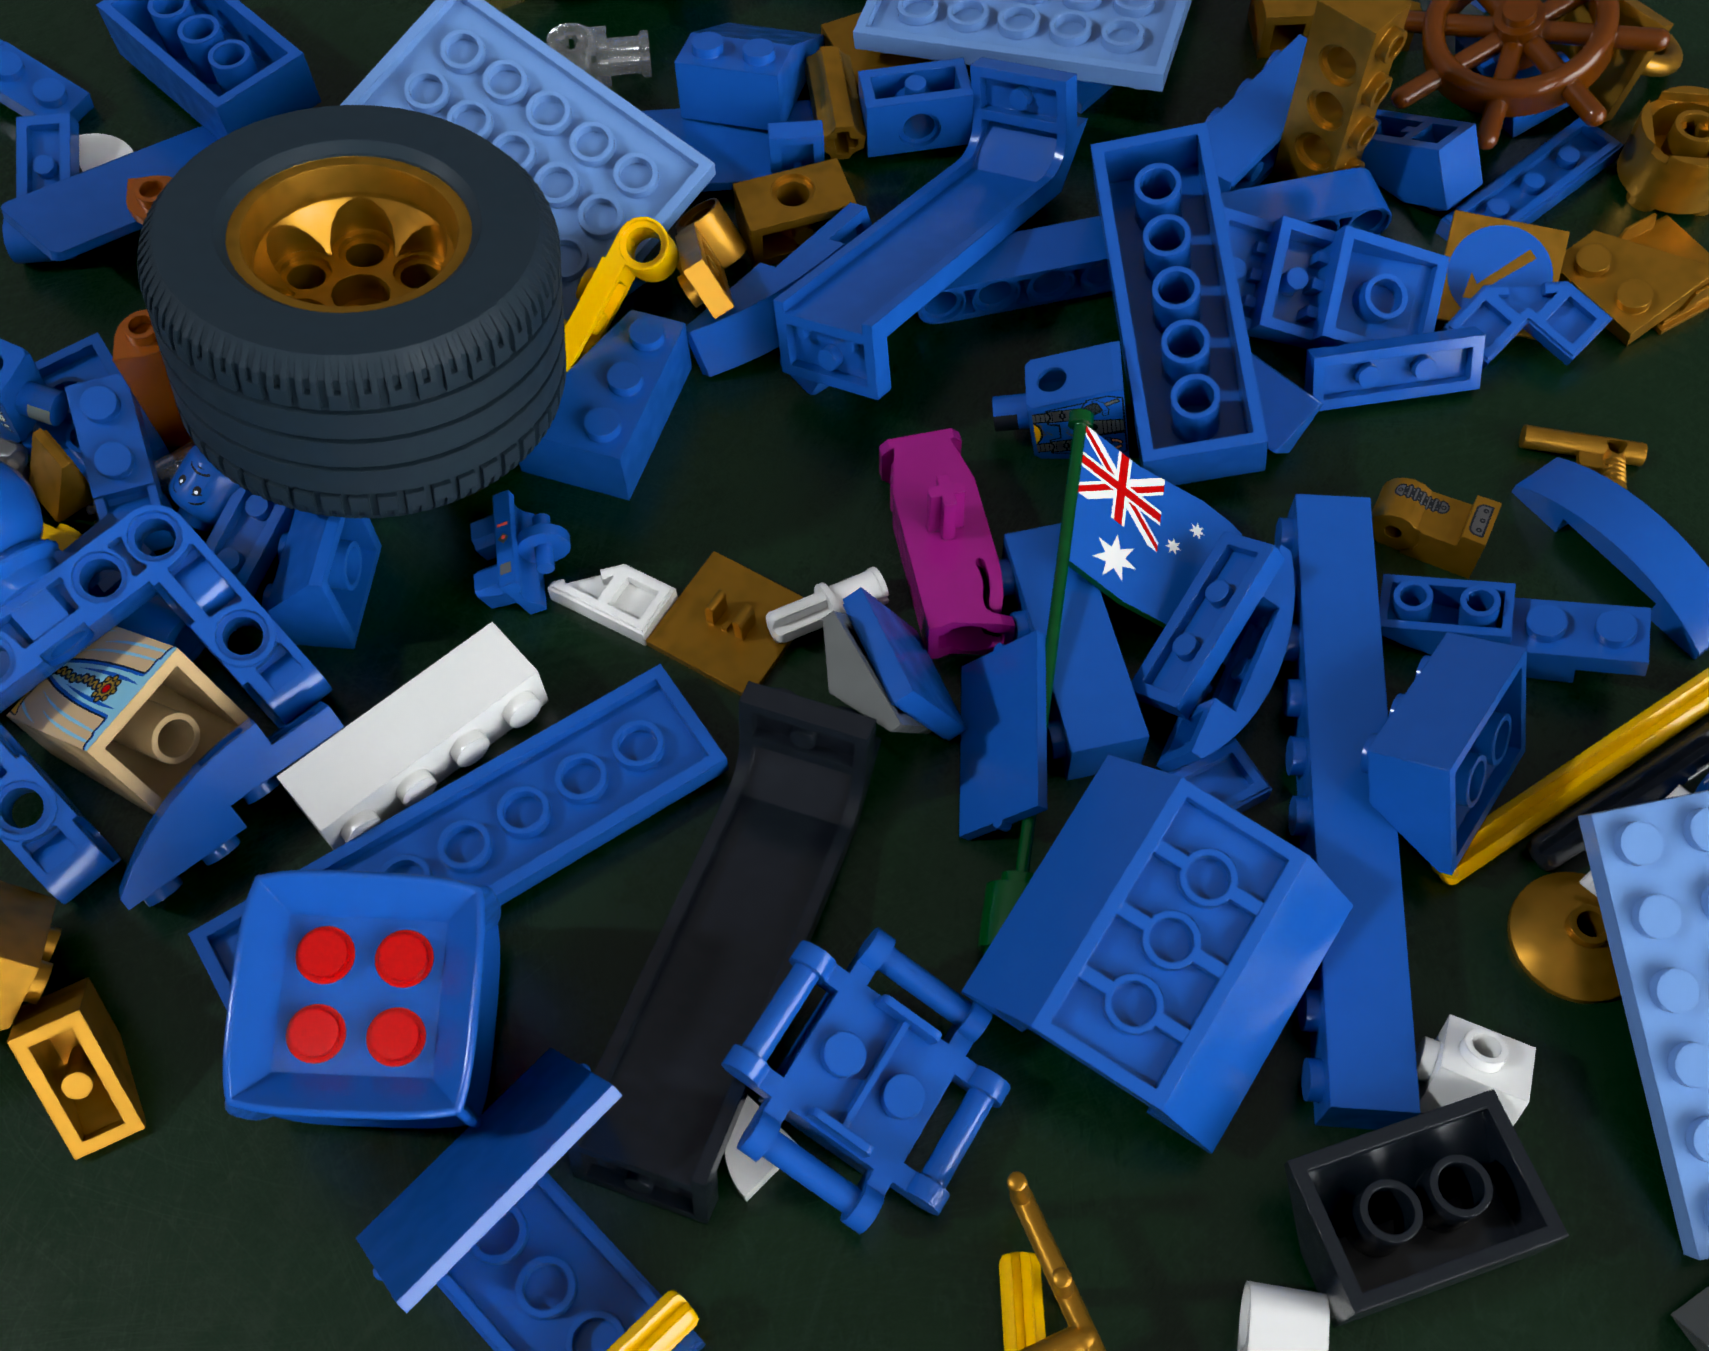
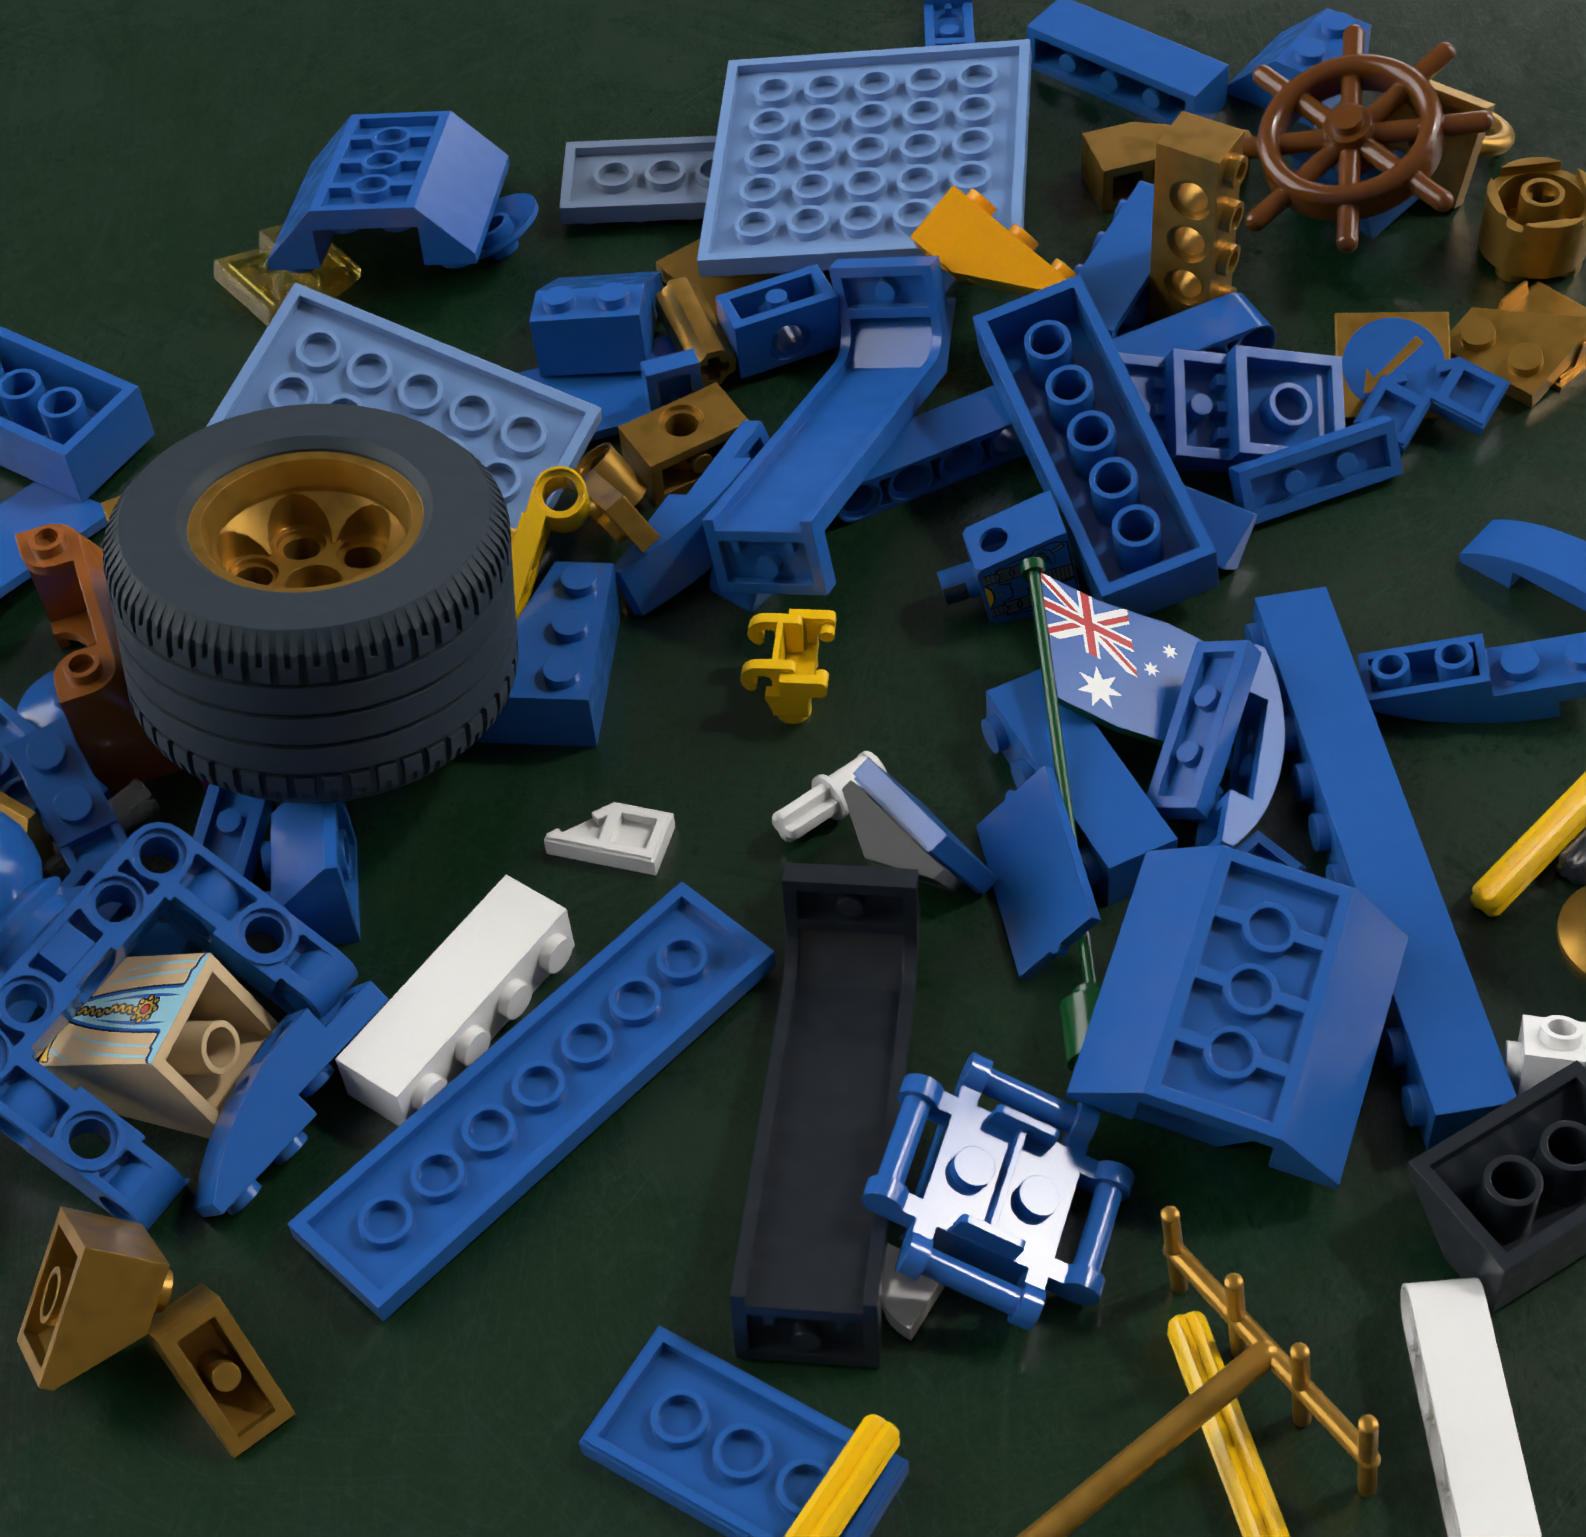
camera: 10 degrees left, 10 degrees down
(200, 490) = (170, 799): blue head -> none
(363, 1000) = (515, 1215): blue piece -> none
(483, 1175) = (661, 1347): blue piece -> none
(524, 551) = (510, 809): blue hips -> none
(600, 54) = (456, 329): clear connector -> none
(722, 624) = (730, 839): pearl gold piece -> none
(830, 457) = (792, 661): none -> yellow piece
(945, 544) = (928, 716): magenta piece -> none
(1122, 76) = (981, 250): none -> light orange slope
(1424, 159) = (1293, 273): blue slope -> none
(1433, 525) = (1391, 603): pearl gold leg -> none
(1449, 746) = (1460, 785): blue slope -> none
(1543, 176) = (1412, 267): blue tile -> none
(1599, 453) = (1531, 507): pearl gold hose -> none

